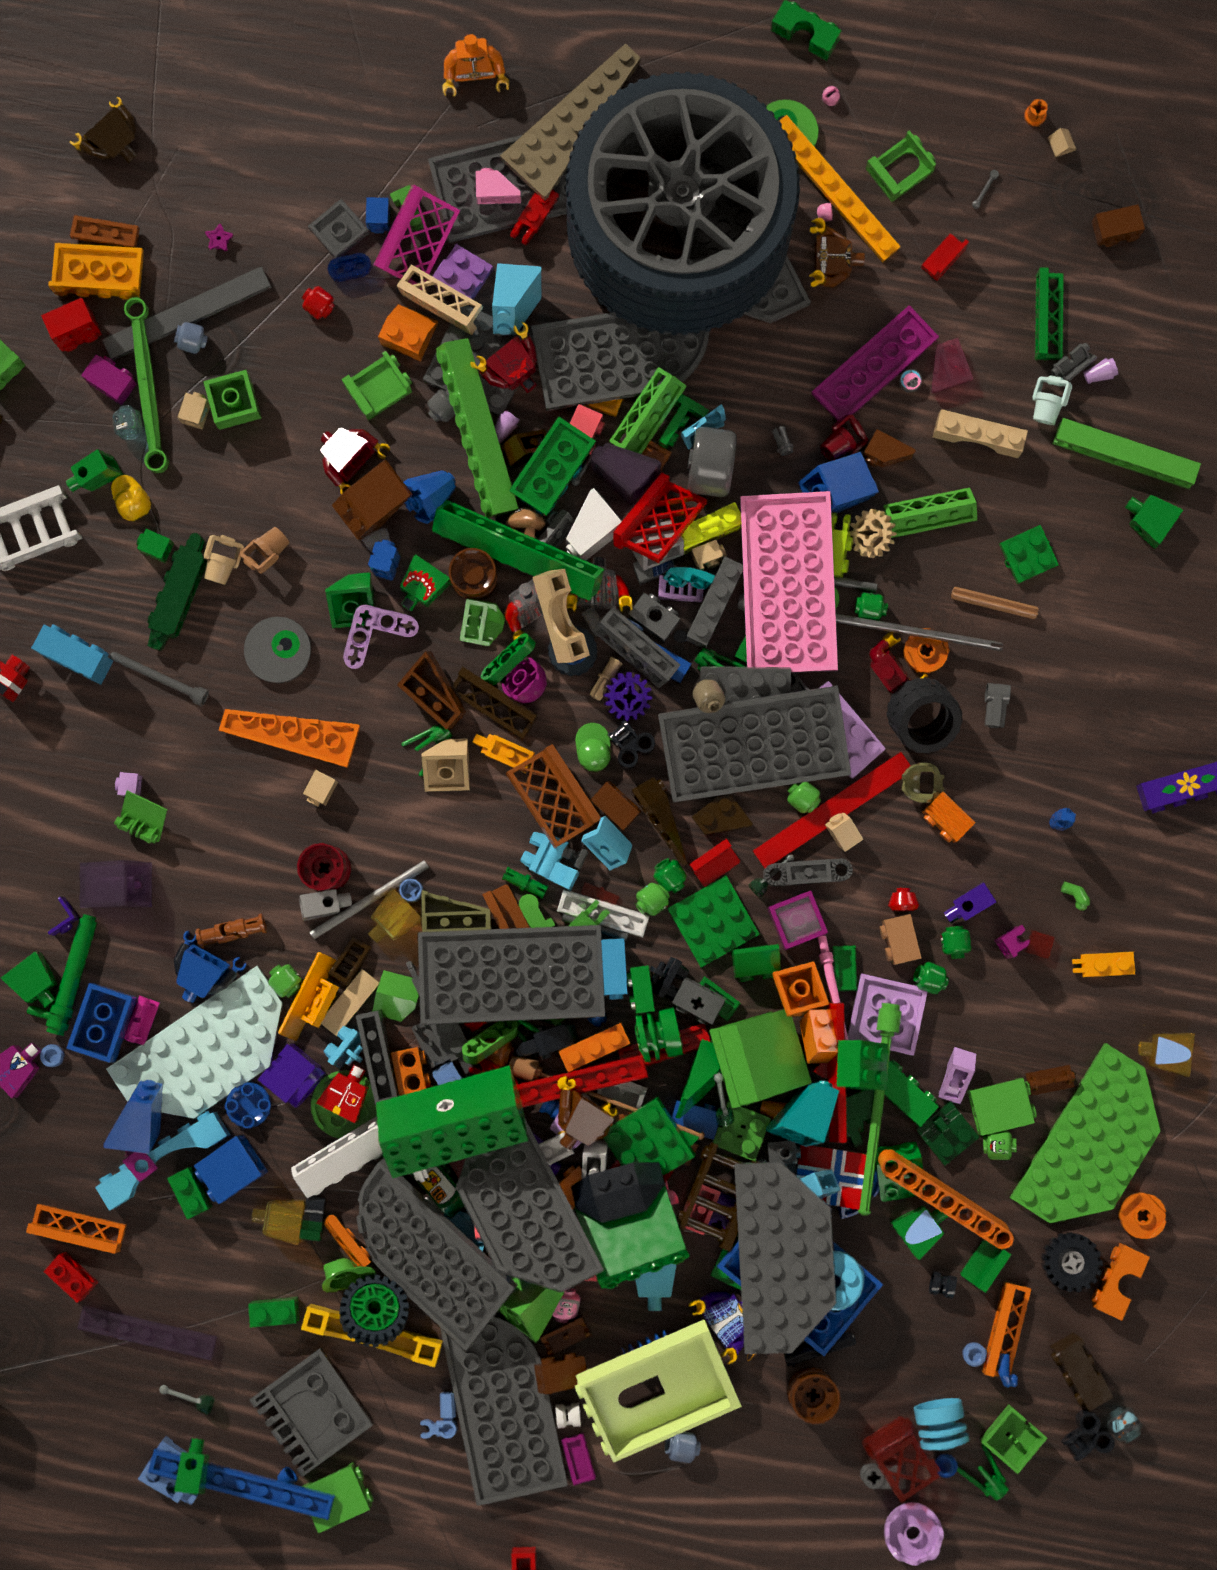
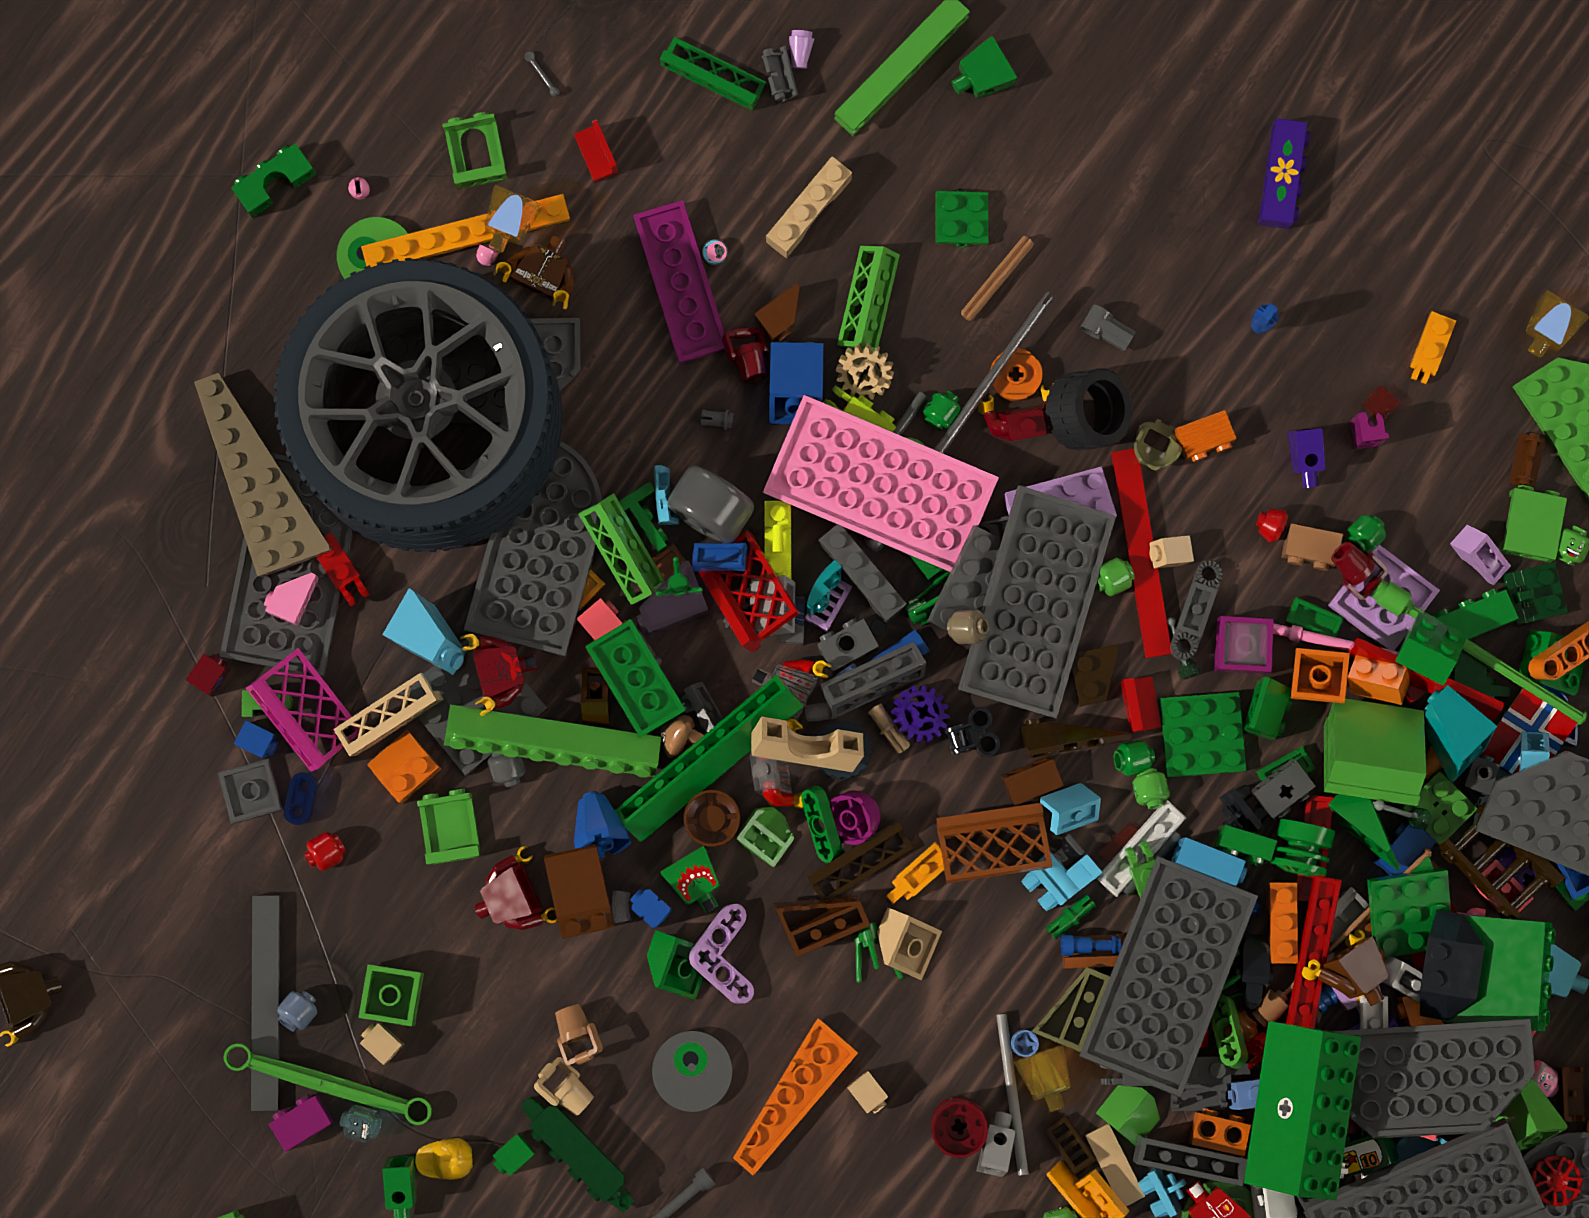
camera: 70 degrees left, 0 degrees up
(71, 325) = (223, 1136): red brick -> none
(96, 270) = (169, 1081): light orange bracket -> none
(104, 232) = (129, 1053): dark orange plate -> none
(218, 232) = (204, 928): magenta plate -> none
(411, 156) = (208, 674): none -> dark red brick
(463, 272) = (366, 677): medium lavender plate -> none
(473, 61) = (134, 556): orange torso -> none
(491, 1352) = (1557, 1180): none -> red wheel
(505, 425) = (559, 708): lavender cone -> none
(507, 902) = (1085, 945): none -> blue piece
(530, 908) = (1100, 924): bright green leg -> none
(592, 527) = (720, 666): white slope -> none
(593, 747) = (956, 776): bright green cap -> none
(637, 461) = (678, 583): none -> green plant
(675, 487) = (719, 557): none -> blue tile
(708, 555) = (806, 556): tan brick -> none
(861, 212) = (509, 217): none -> clear yellow torso
(899, 979) = (1356, 567): none -> dark red piece
(949, 366) = (719, 204): clear pink wing -> none
(956, 942) = (1339, 489): green head -> none
(1049, 405) = (813, 122): light aqua piece -> none
(1079, 894) = (1347, 337): bright green arm -> none

